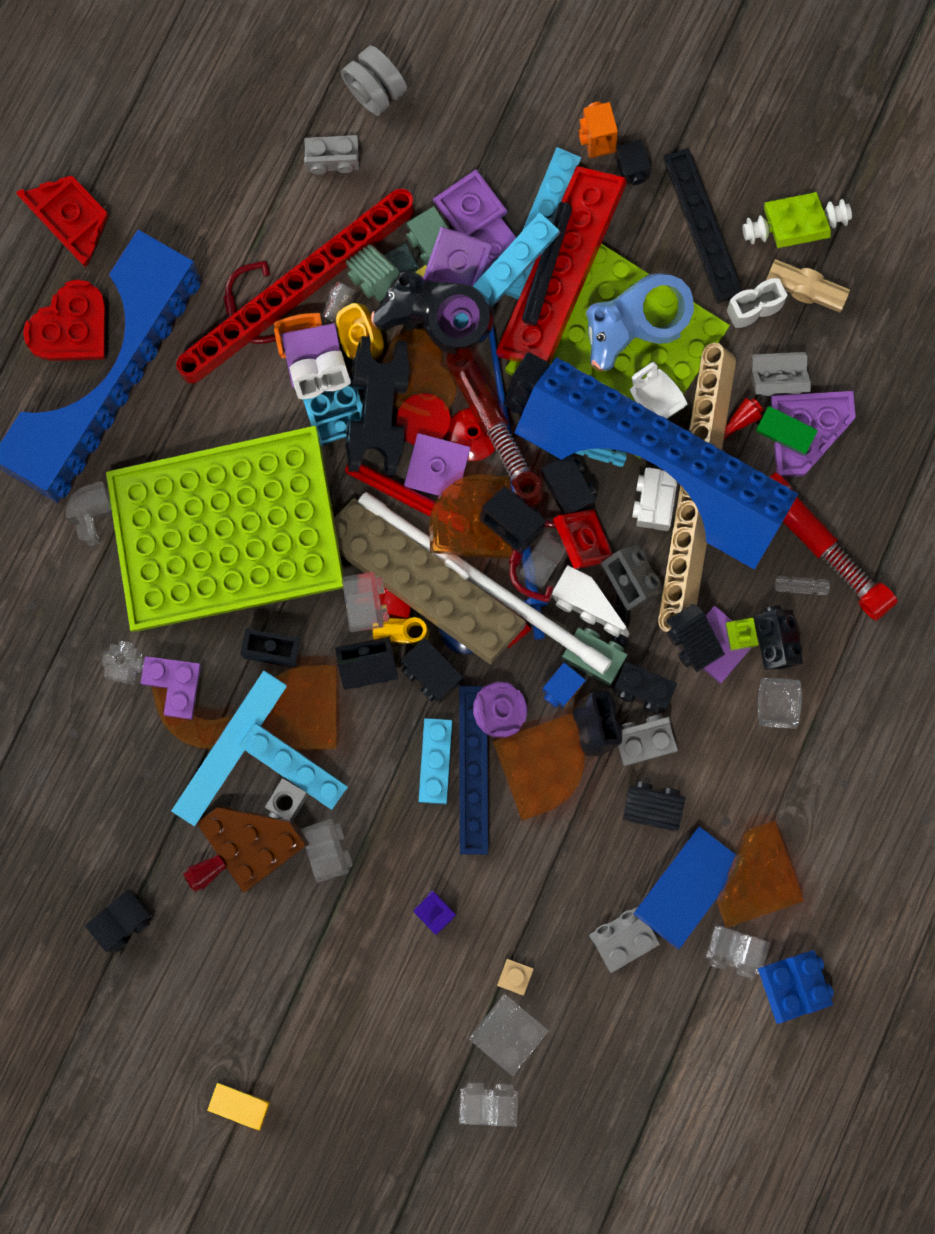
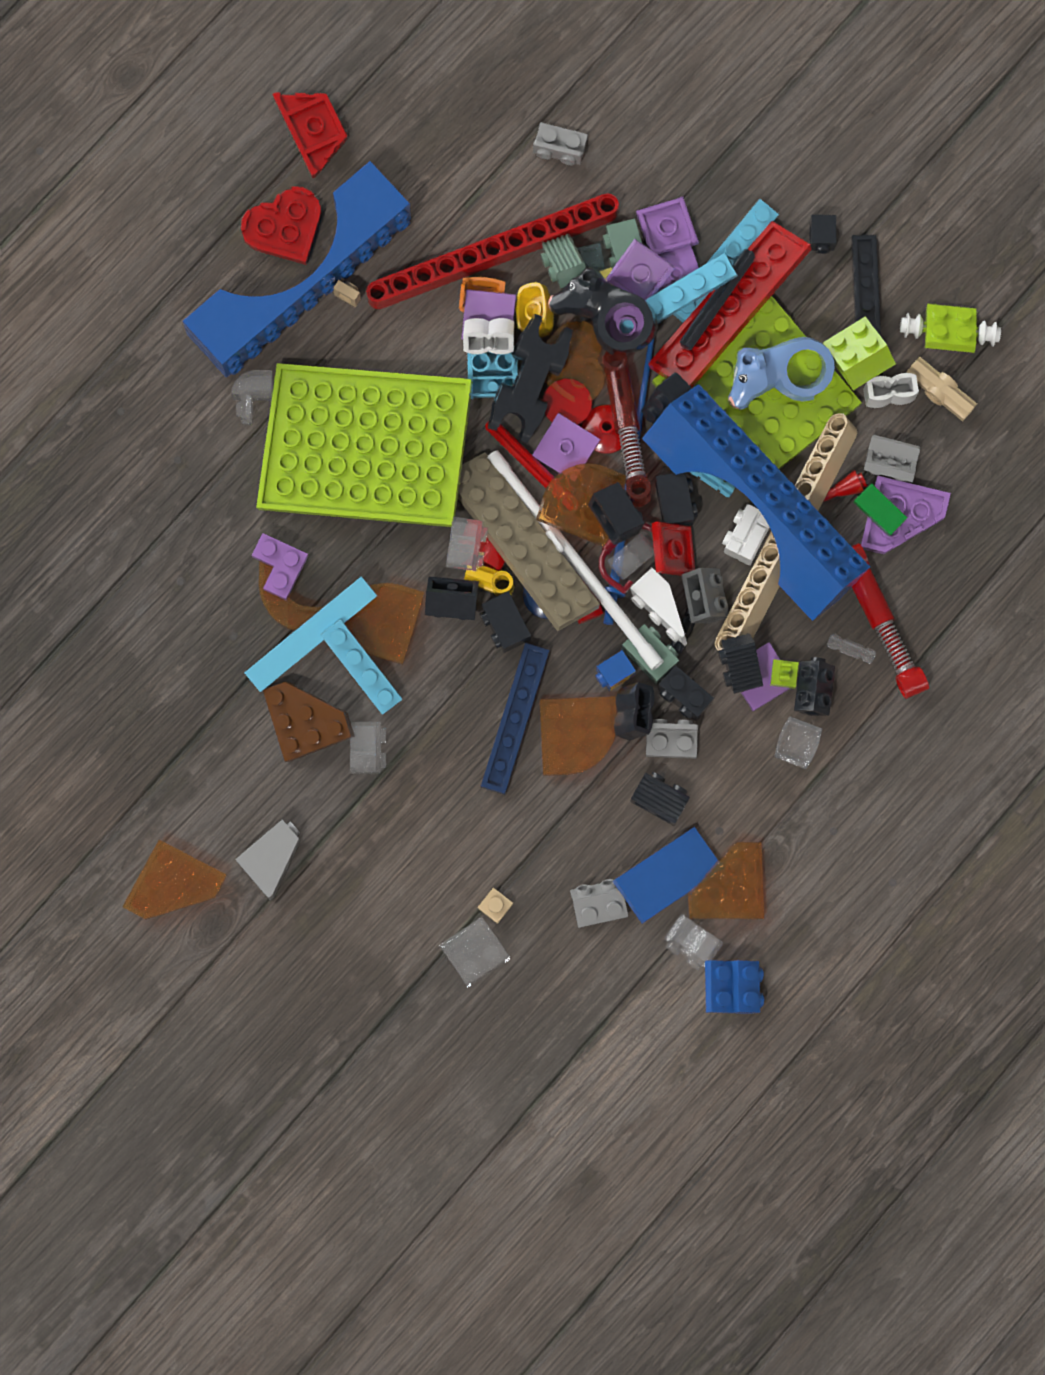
camera: 10 degrees right, 0 degrees up
(119, 921) = (171, 752): black brick -> none
(124, 672) = (241, 541): clear brick -> none
(157, 375) = (347, 292): none -> tan plate
(162, 1061) = (172, 883): none -> clear orange plate
(203, 873) = (255, 734): dark red cone -> none
(229, 300) = (430, 246): dark red piece -> none
(239, 1106) = (225, 941): yellow slope -> none
(260, 1001) = (270, 857): none -> light grey slope
(271, 648) = (373, 560): black brick -> none
(286, 789) = (350, 685): light grey brick -> none
(338, 298) = (526, 273): clear cone -> none
(374, 80) = (617, 91): light grey wheel -> none
(434, 913) = (443, 830): dark purple panel -> none
(435, 761) = (484, 701): medium azure plate -> none
(488, 1106) = (438, 1006): clear brick -> none
(500, 709) = (554, 673): medium lavender tile -> none
(598, 129) = (800, 195): orange brick -> none
(657, 391) = (777, 441): white piece -> none
(714, 273) = (859, 353): none -> lime brick

